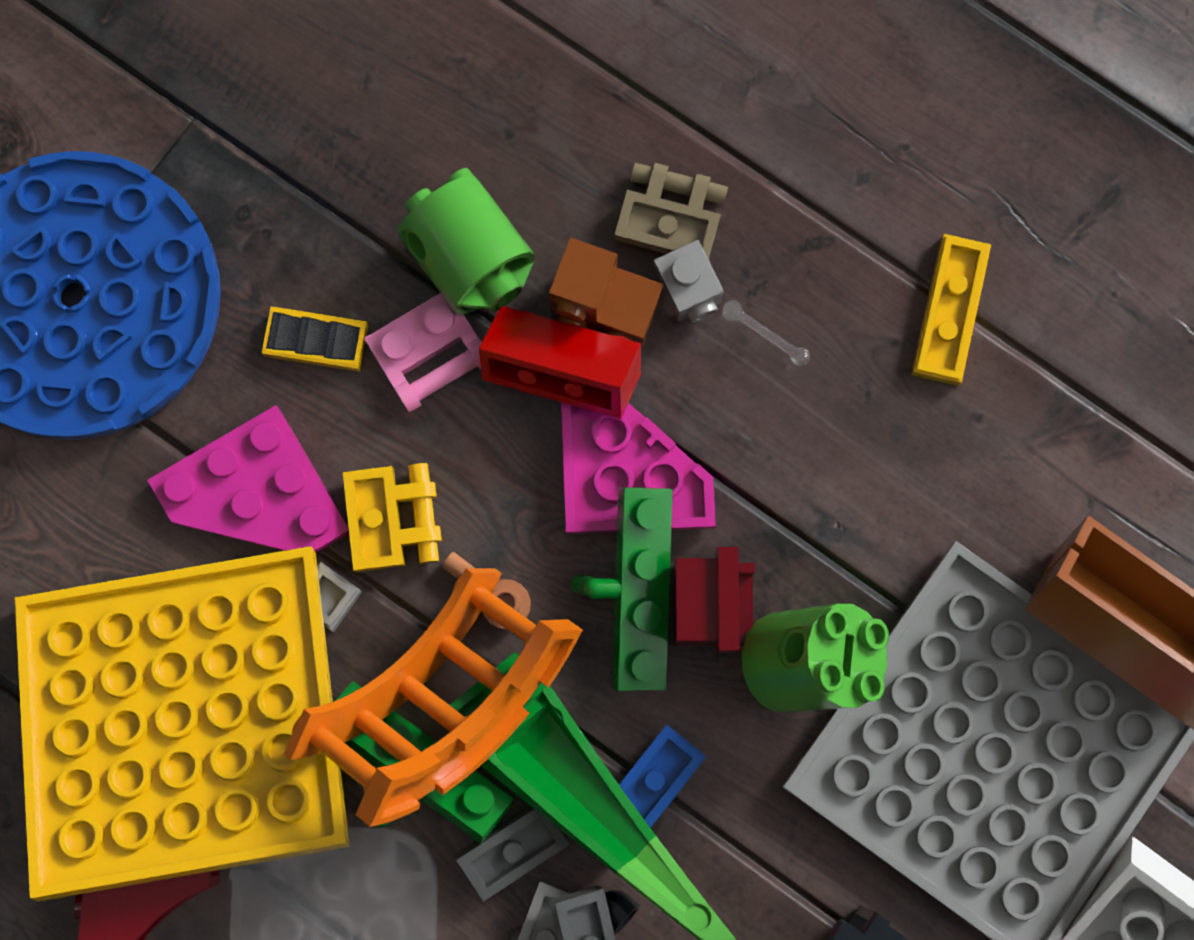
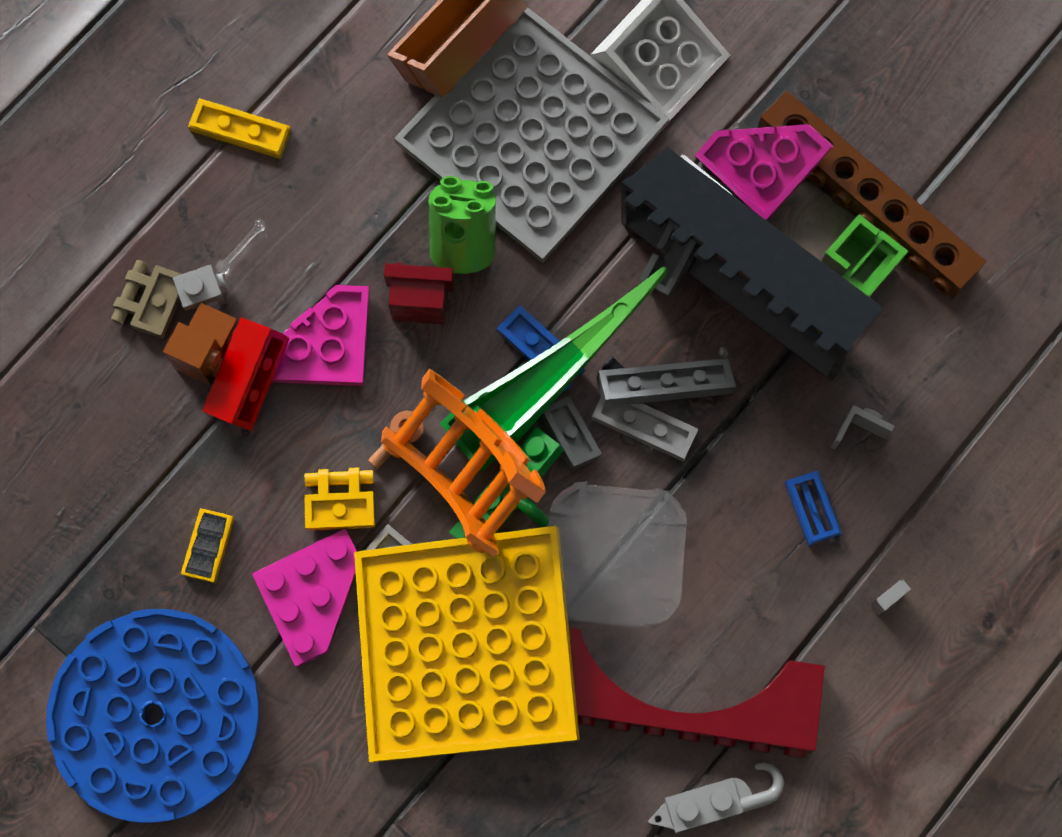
camera: 85 degrees left, 5 degrees down
(417, 339) = (215, 473): bright pink plate -> none
(466, 244) = (156, 430): bright green cylinder -> none
(638, 589) = (405, 337): green plate -> none

